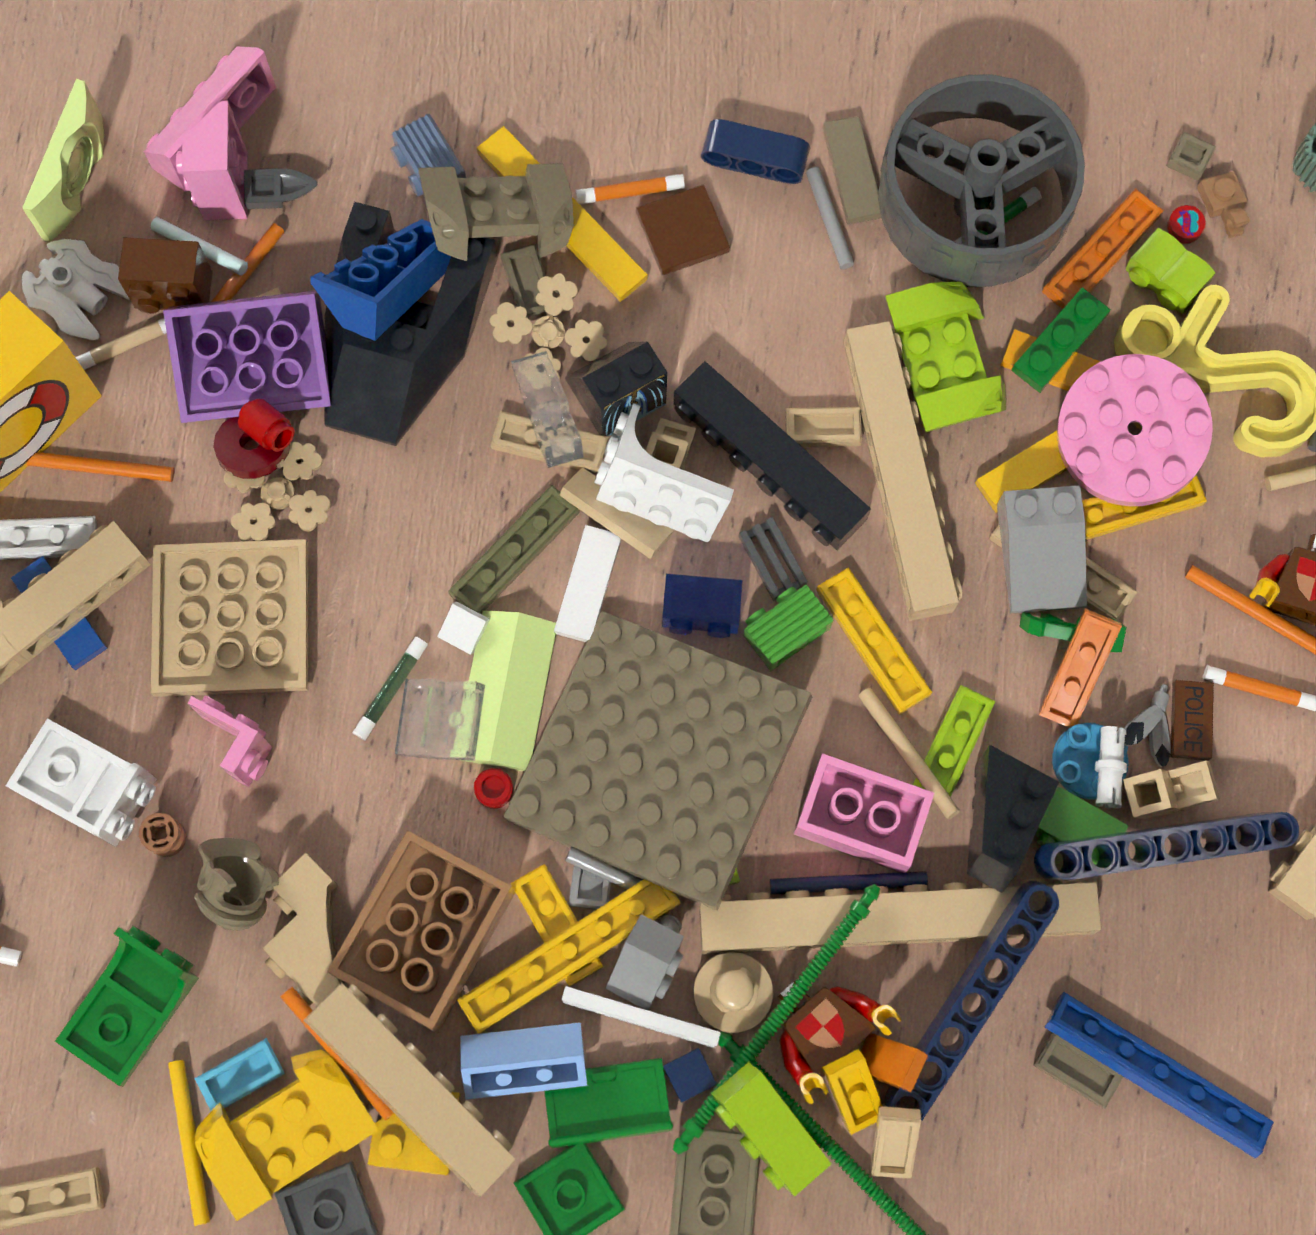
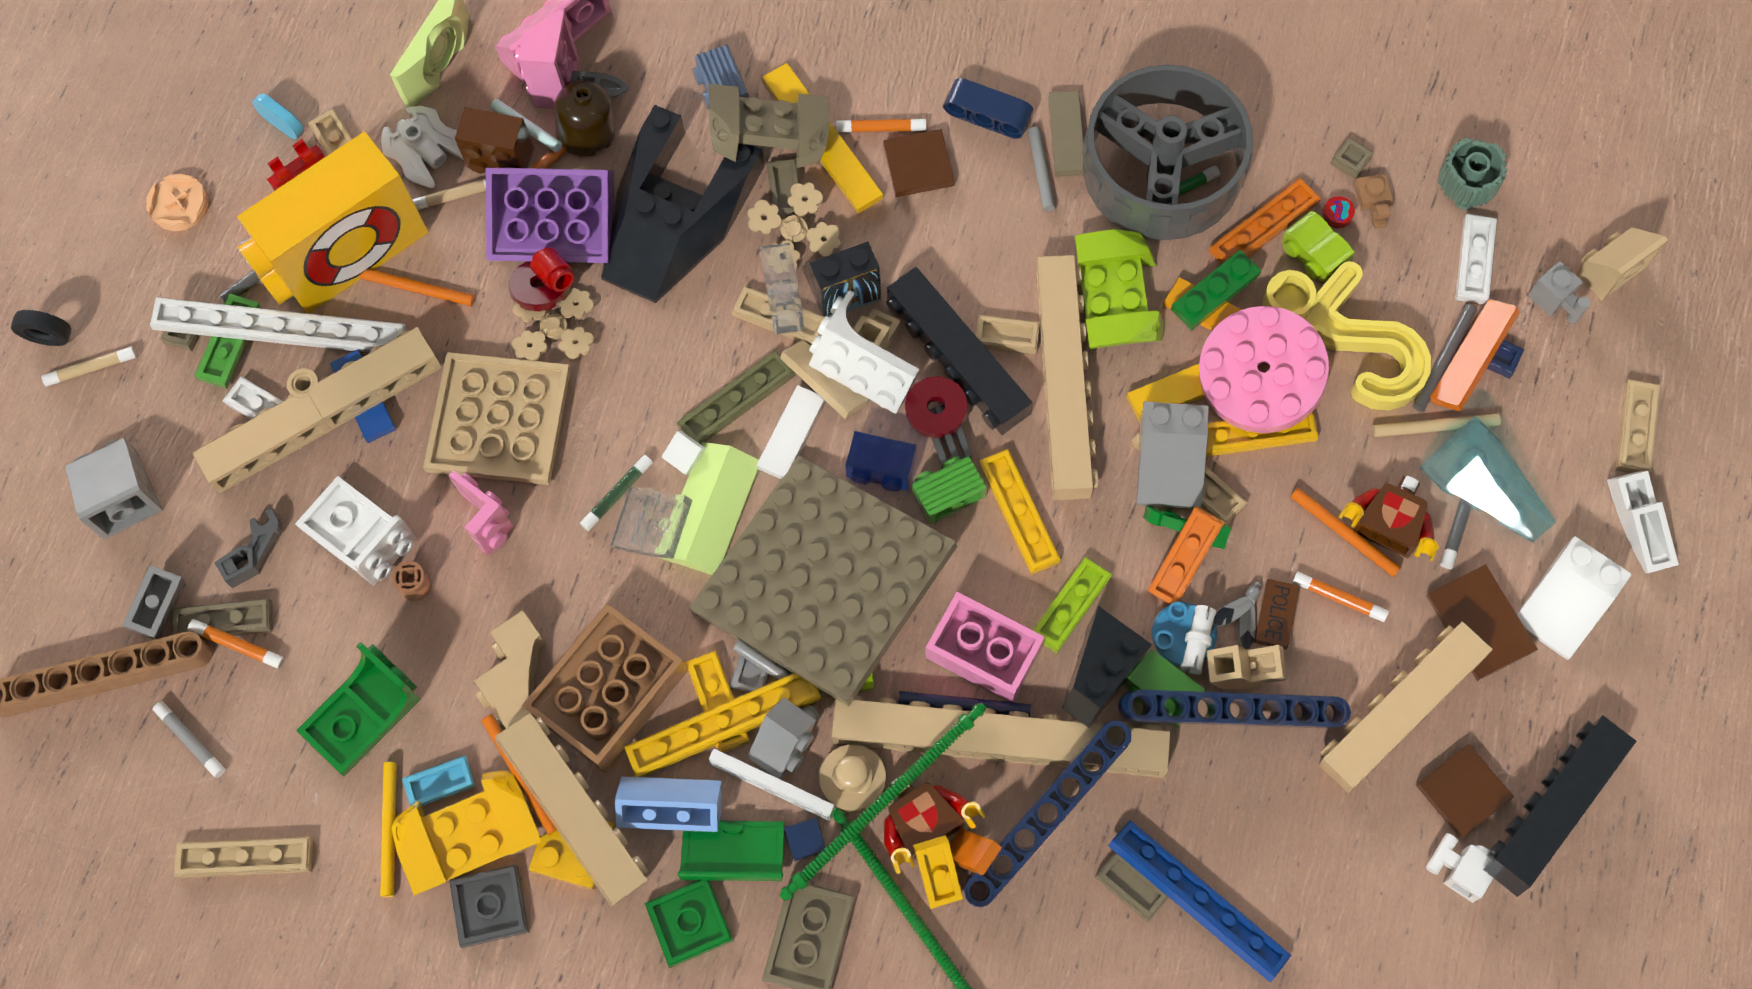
camera: 15 degrees right, 5 degrees down
(233, 883) = (460, 626): dark tan helmet -> none
(270, 229) = (584, 118): none -> dark brown cylinder
(383, 281) = (665, 168): blue wedge -> none
(493, 788) = (685, 584): red tile -> none
(761, 508) = (931, 390): none -> dark red tile
(769, 1130) = (861, 891): lime brick -> none
(895, 1142) = (964, 918): tan tile -> none
(908, 753) = (1032, 605): tan bar -> none

